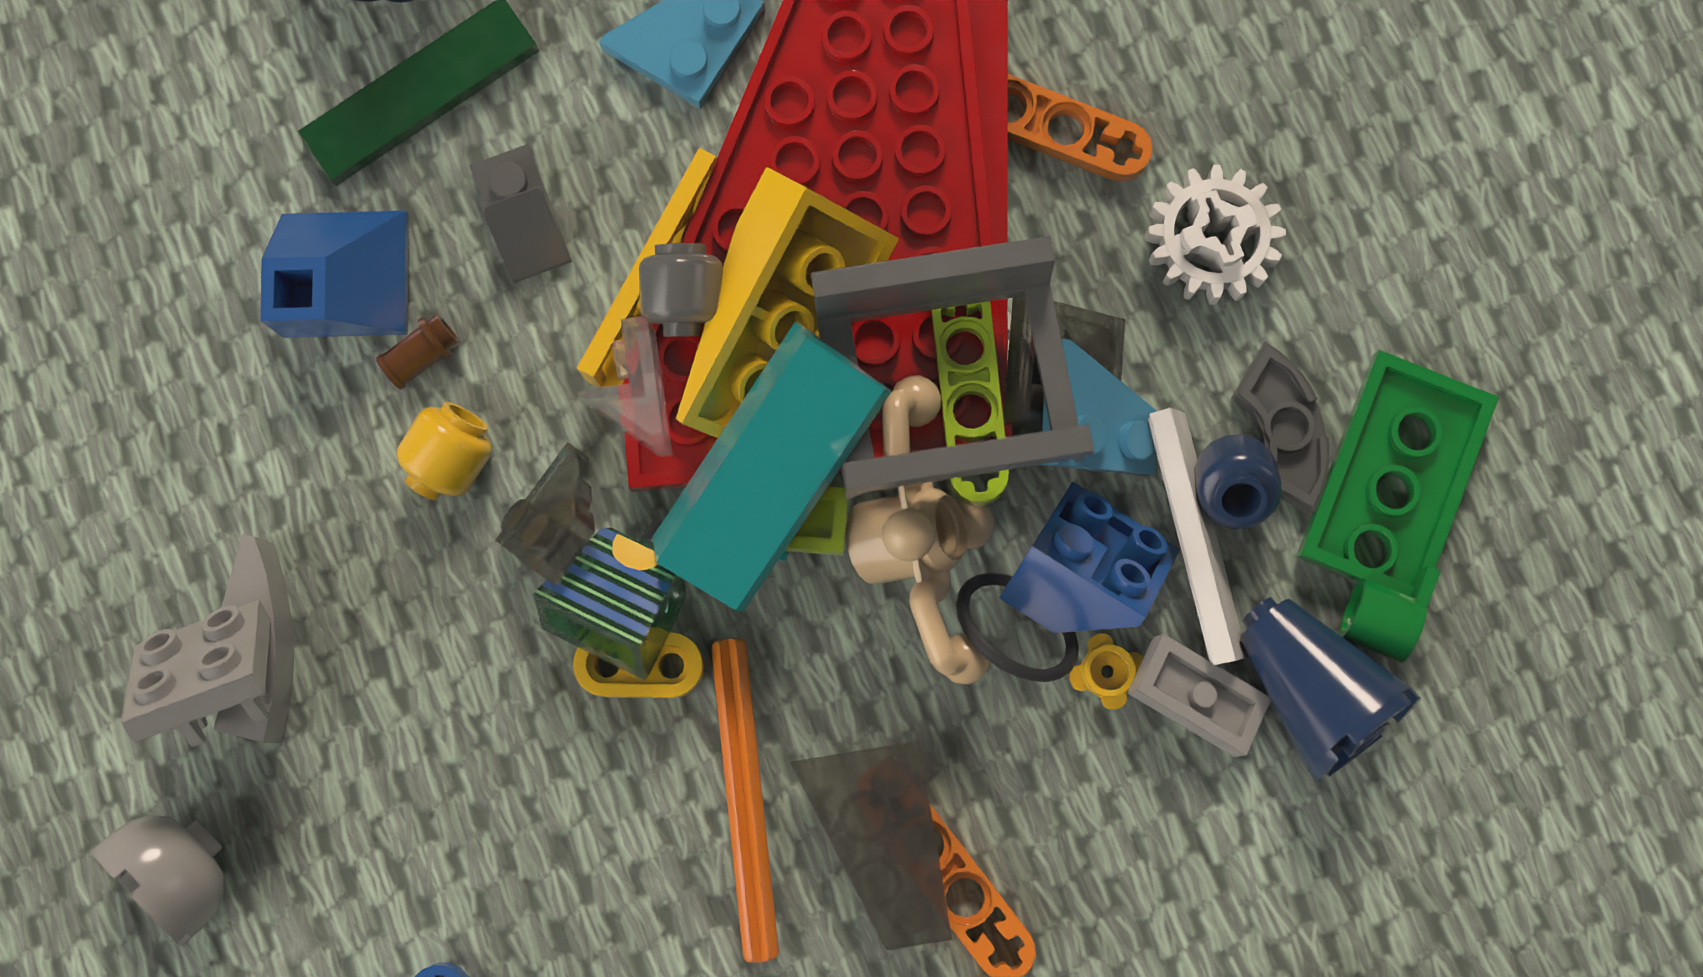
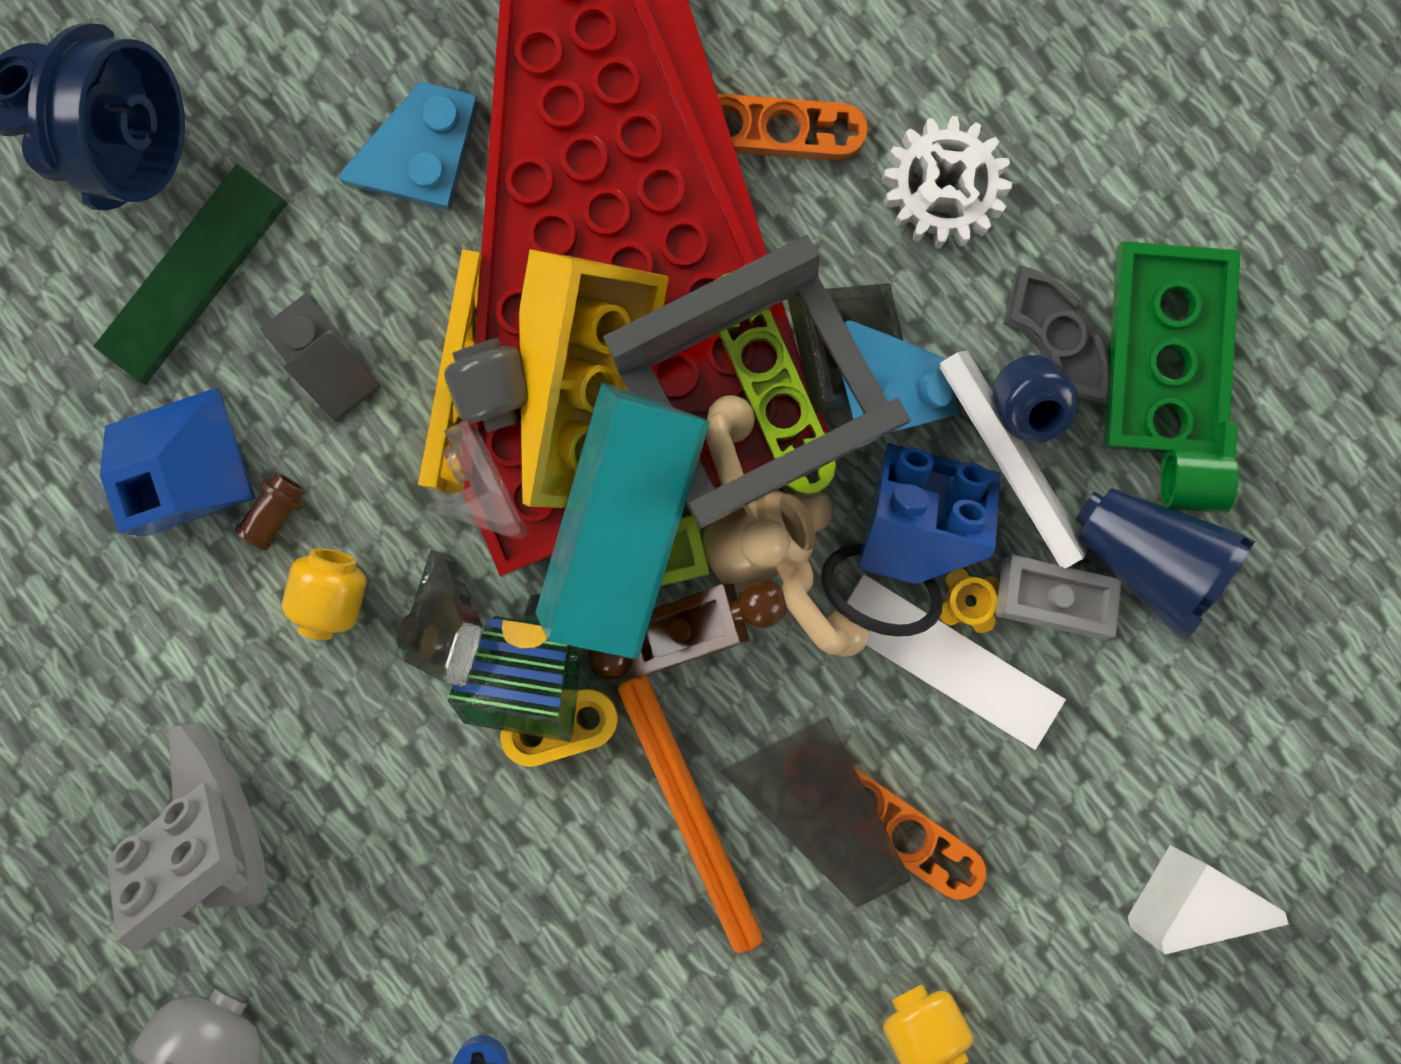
camera: 15 degrees left, 5 degrees up
(808, 605) = (697, 628): none -> reddish brown plate
(1073, 737) = (959, 667): none -> white tile

